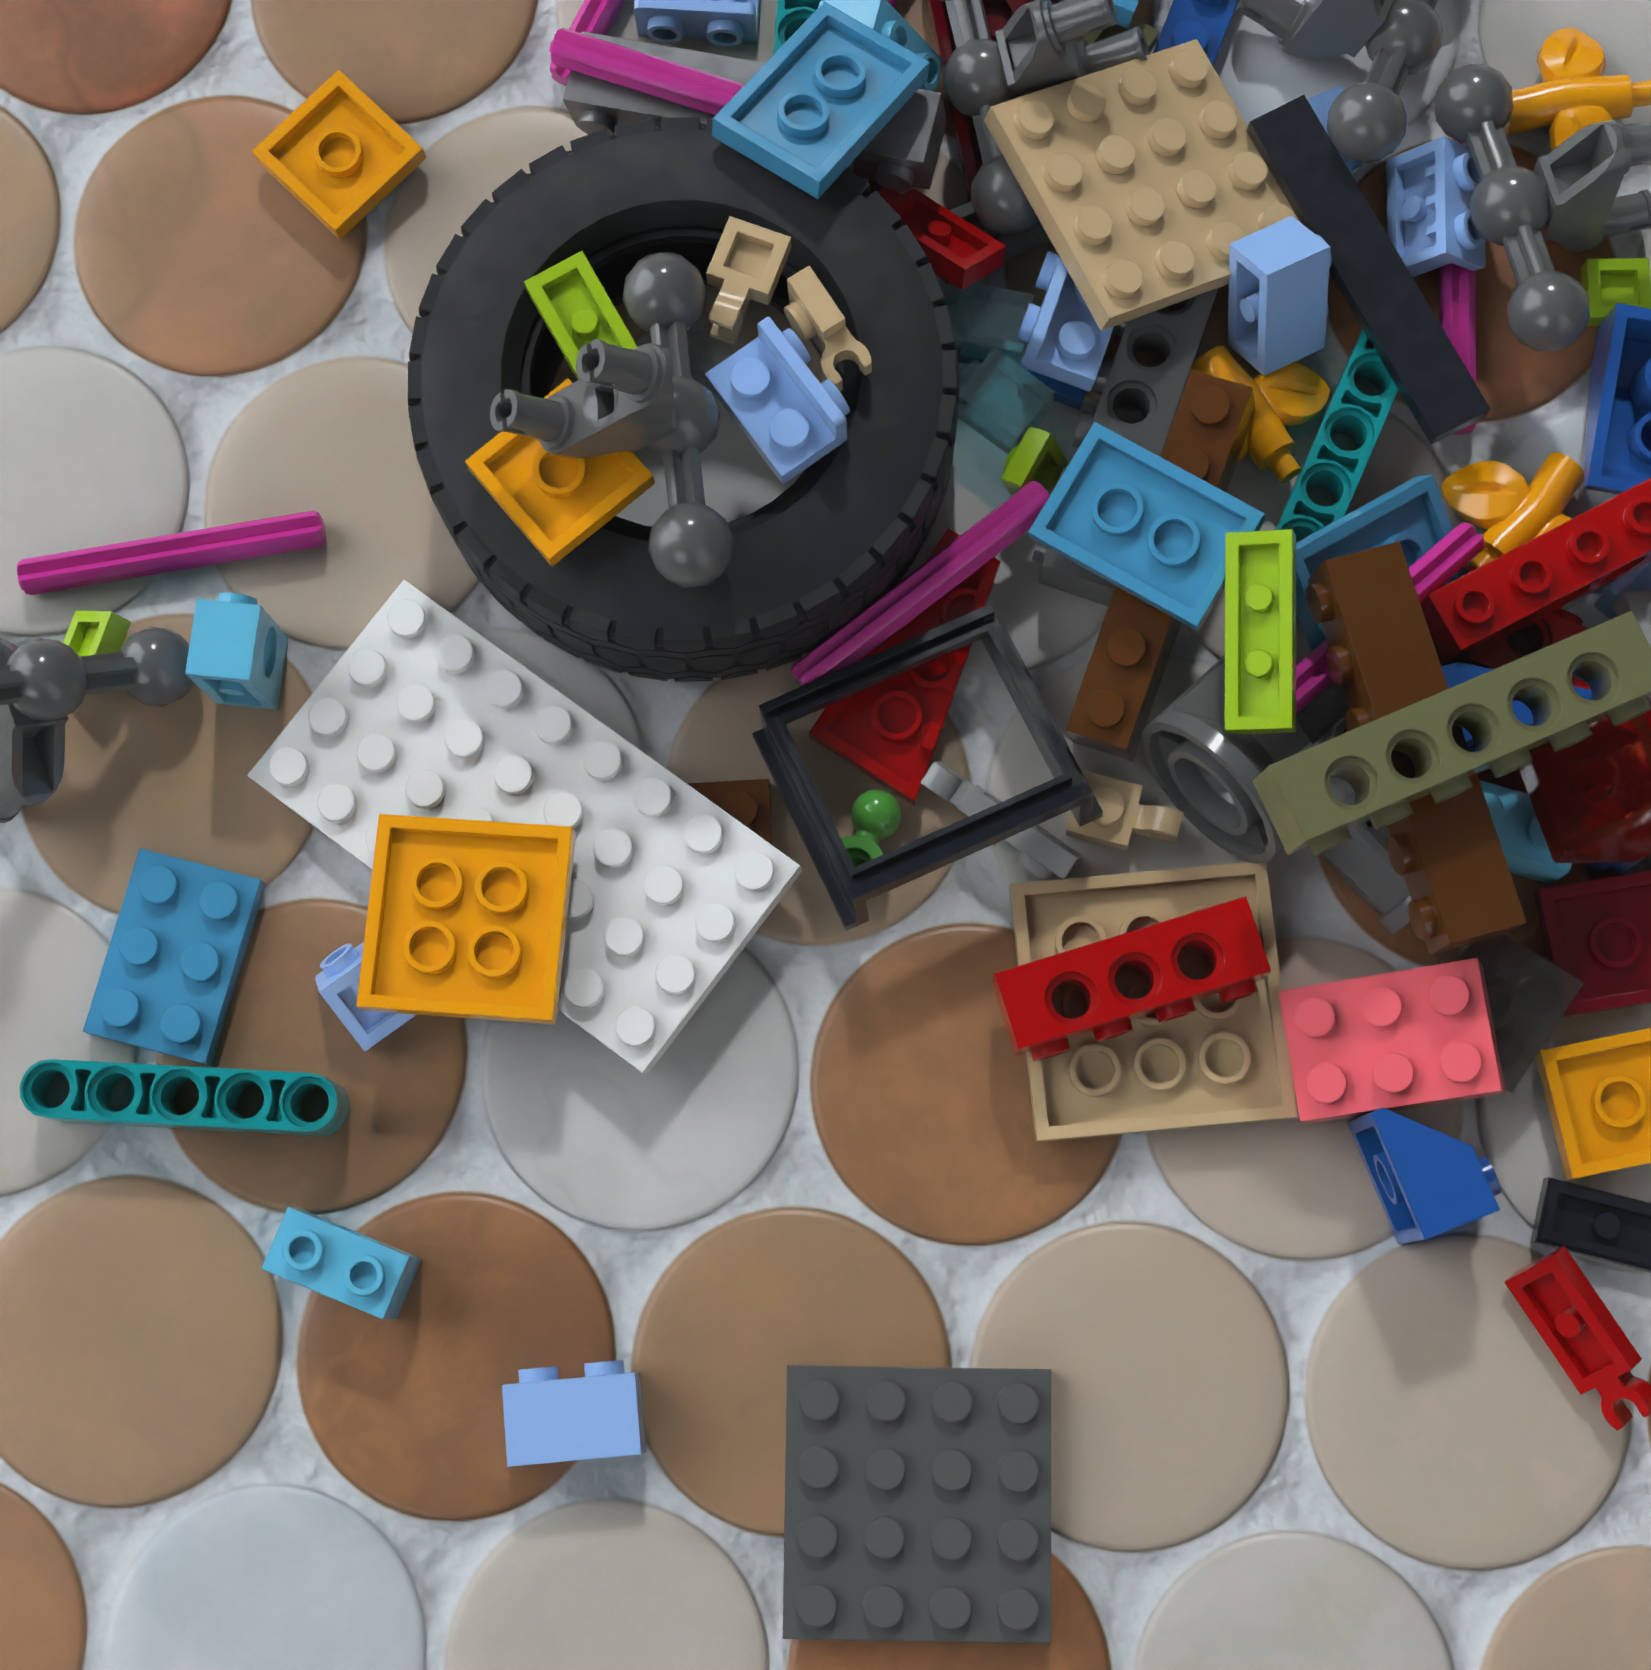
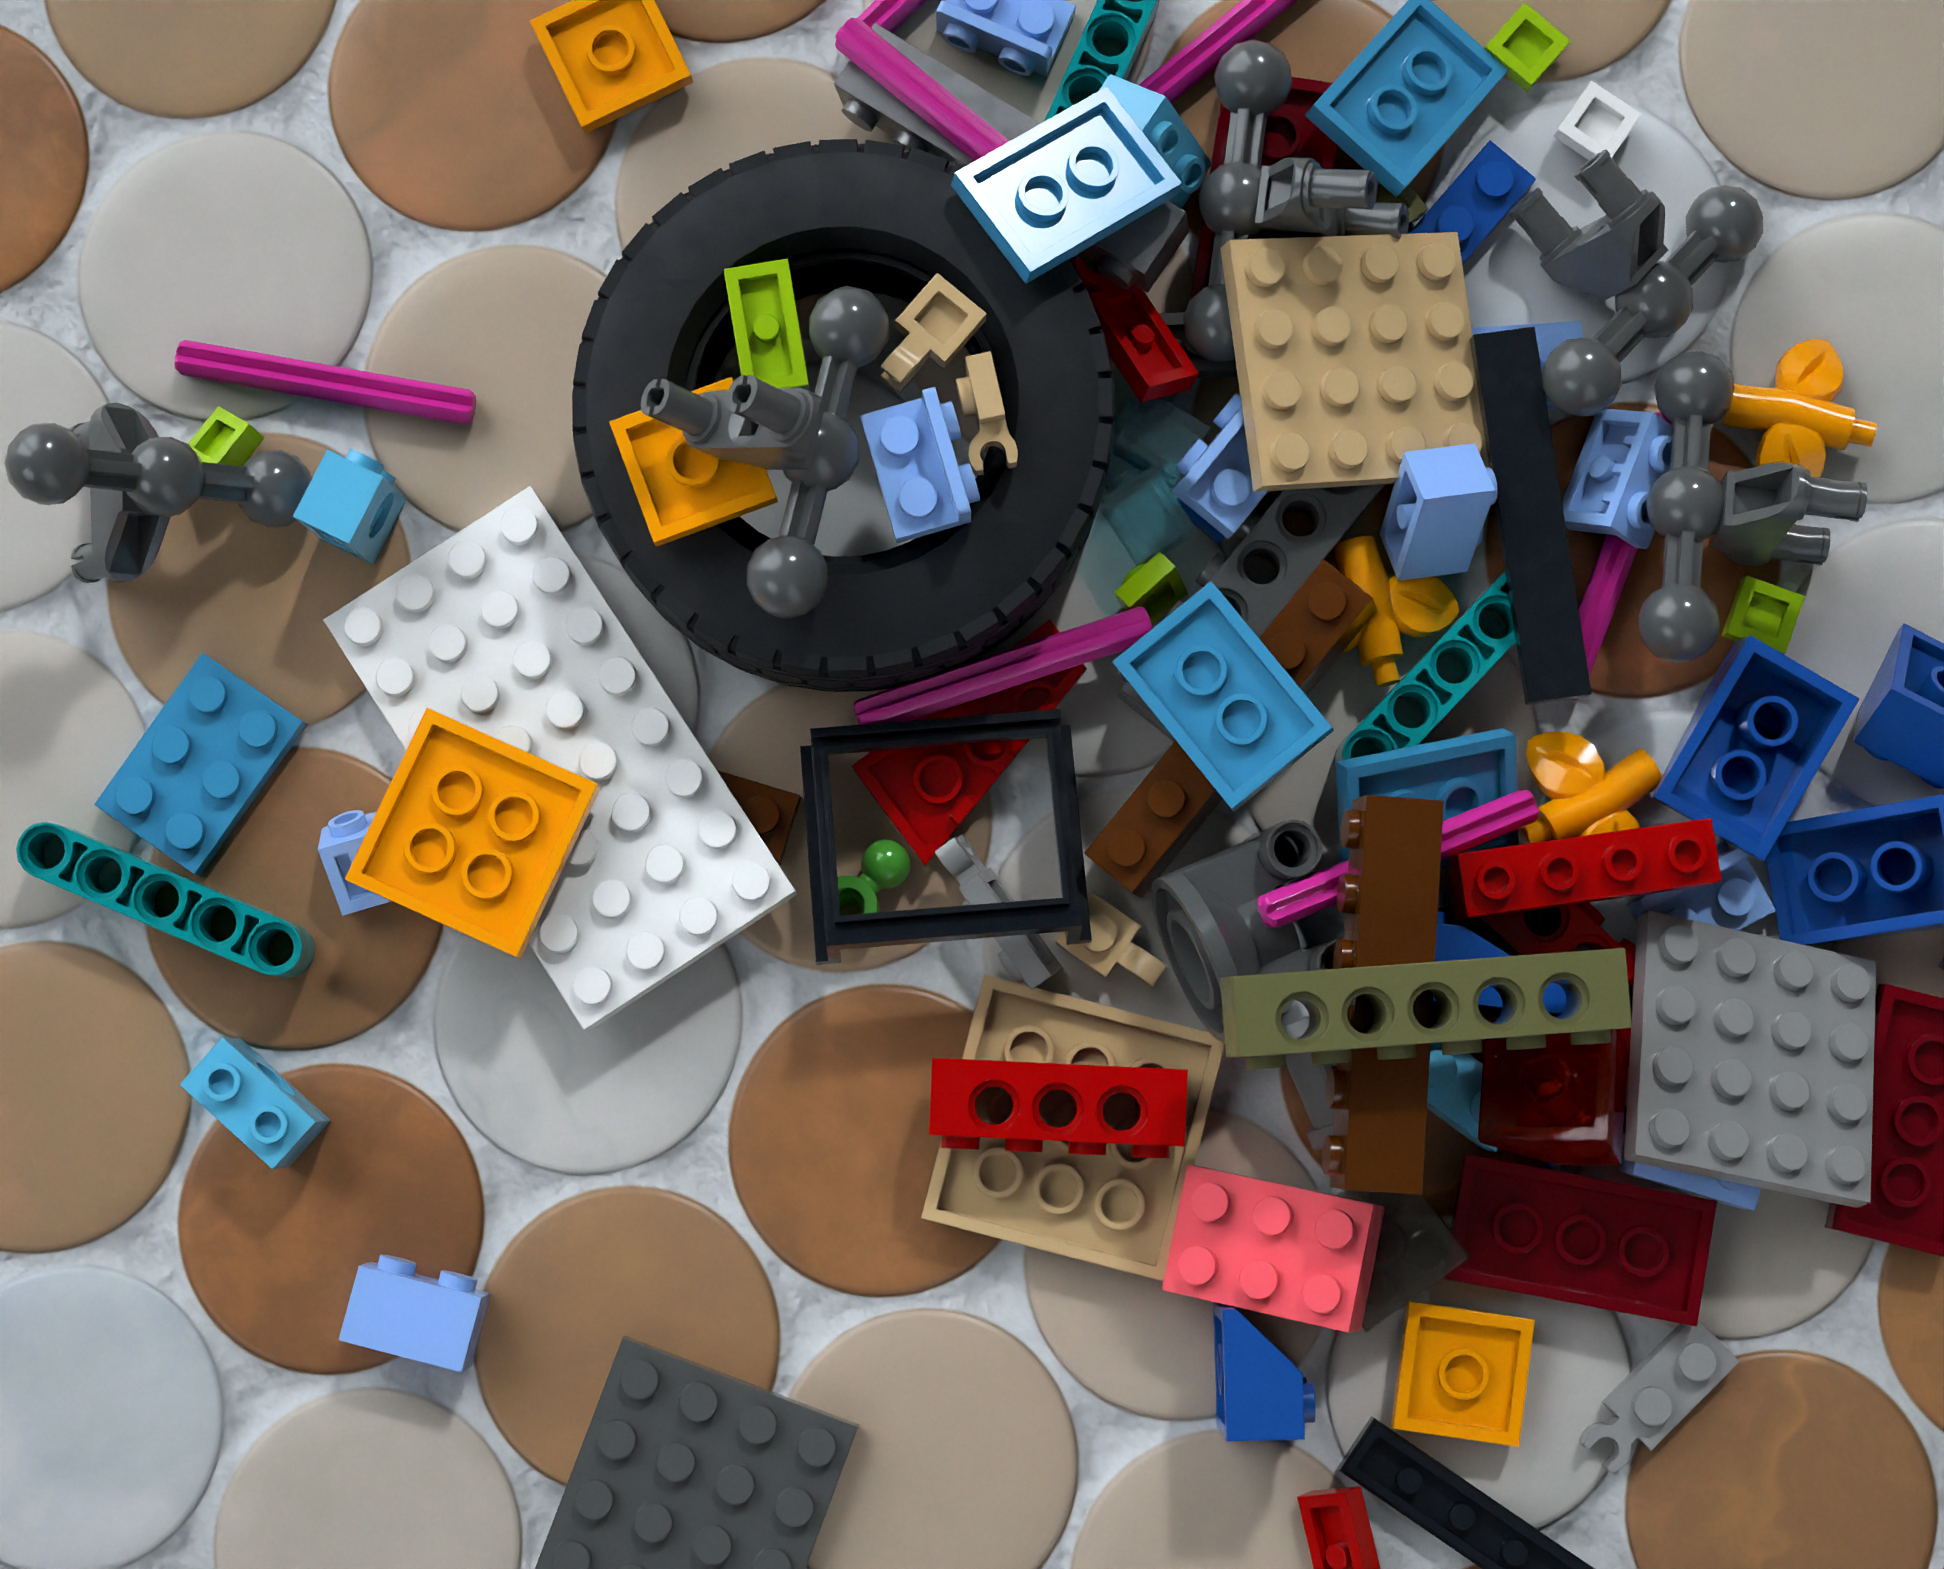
camera: 15 degrees right, 5 degrees up
(1260, 632) = (1284, 838): lime plate -> none

